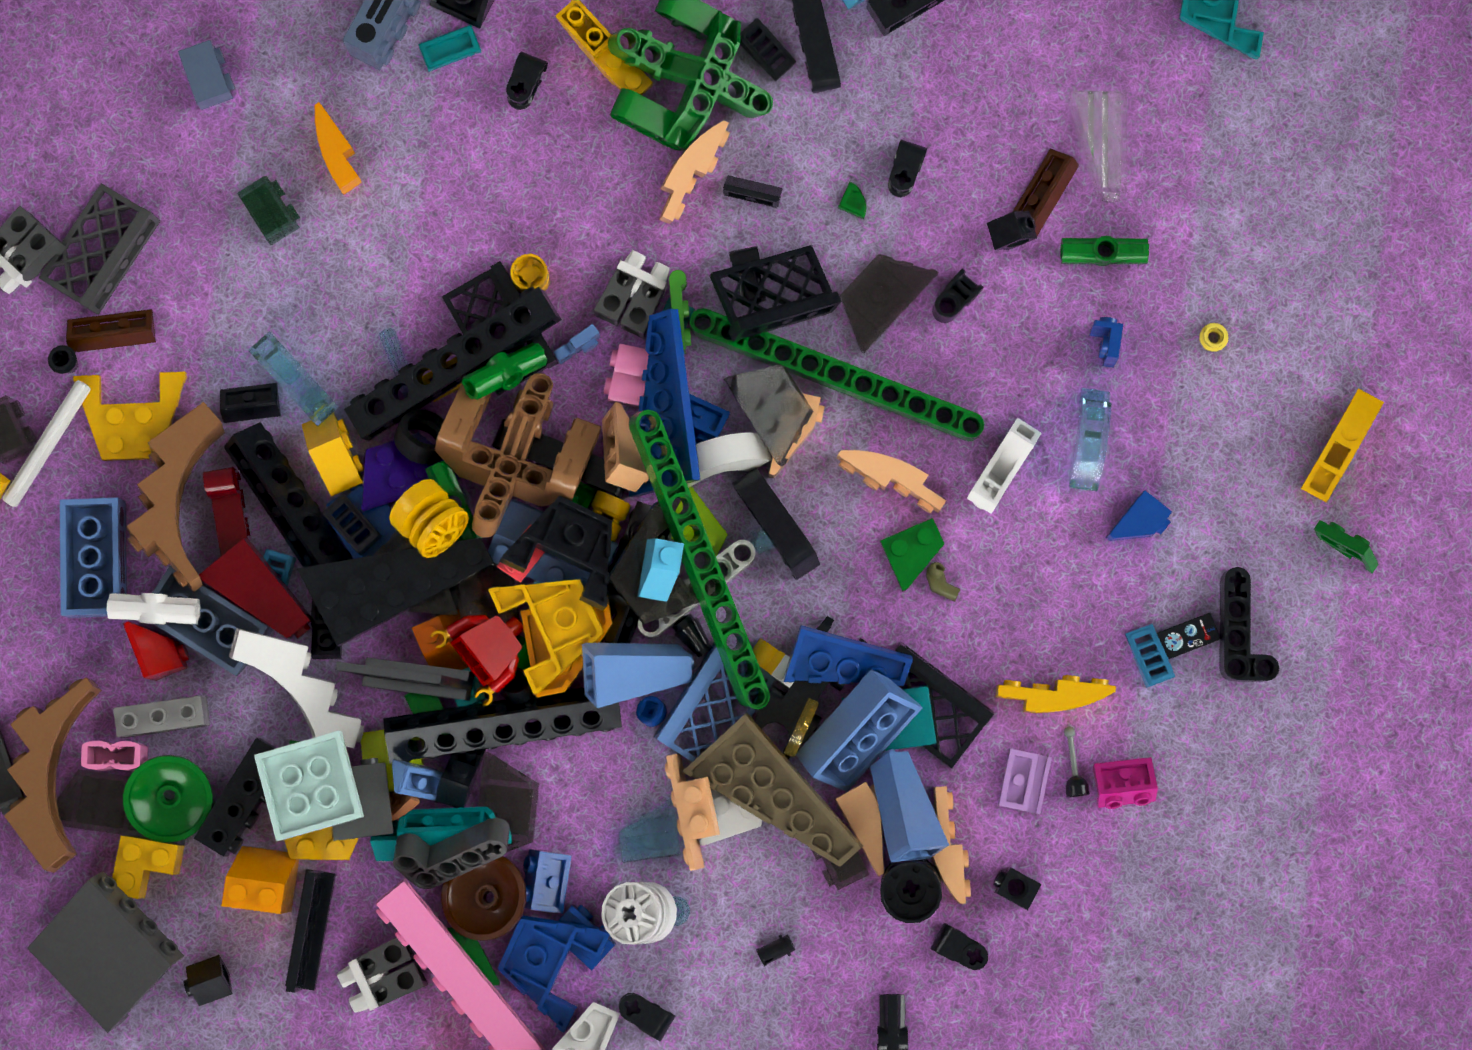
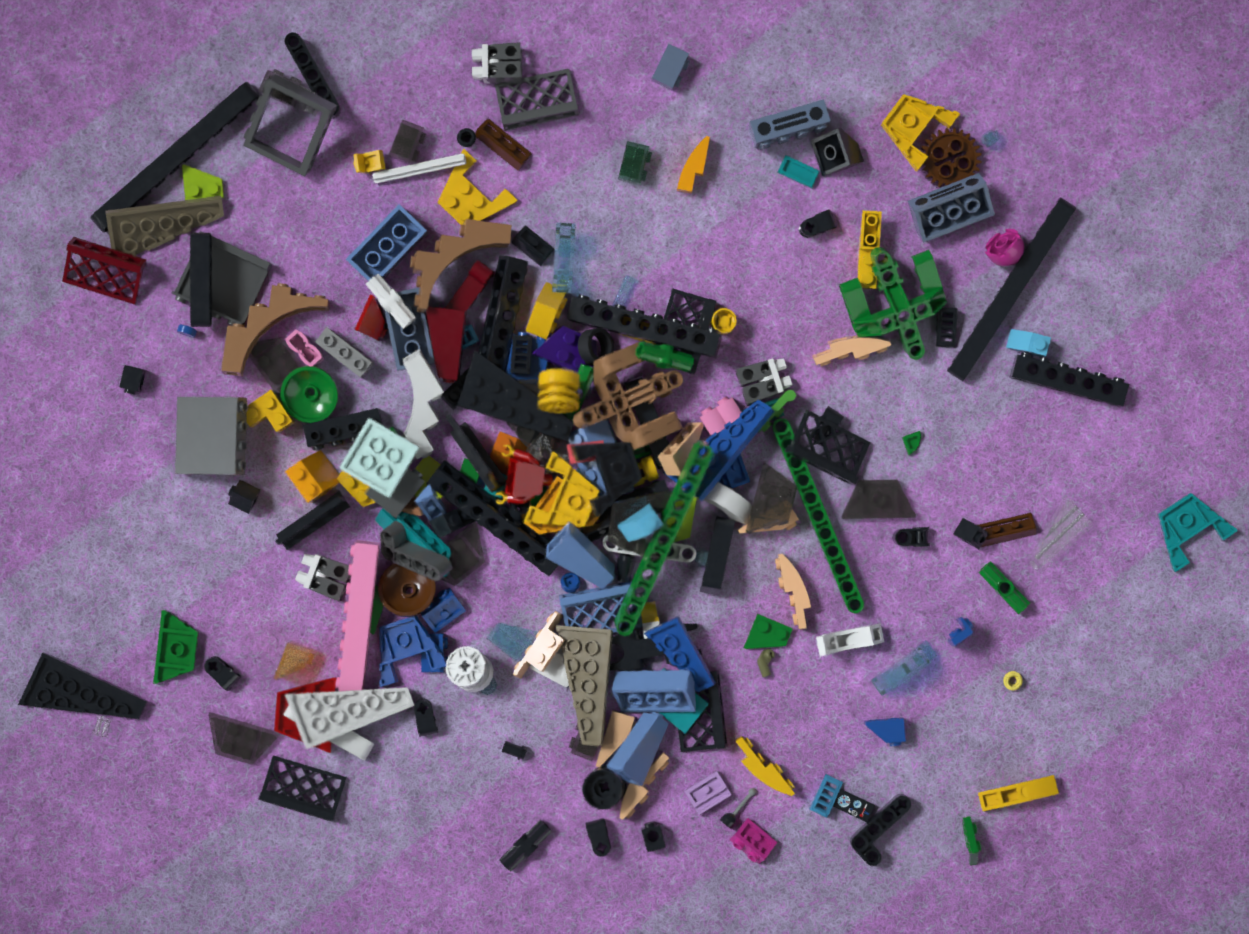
camera: 50 degrees right, 5 degrees up
(585, 341) = (717, 378): medium blue plate -> none
(752, 191) = (869, 388): black slope -> none
(801, 728) = (630, 663): clear yellow tile -> none
(906, 165) = (956, 450): black piece -> none

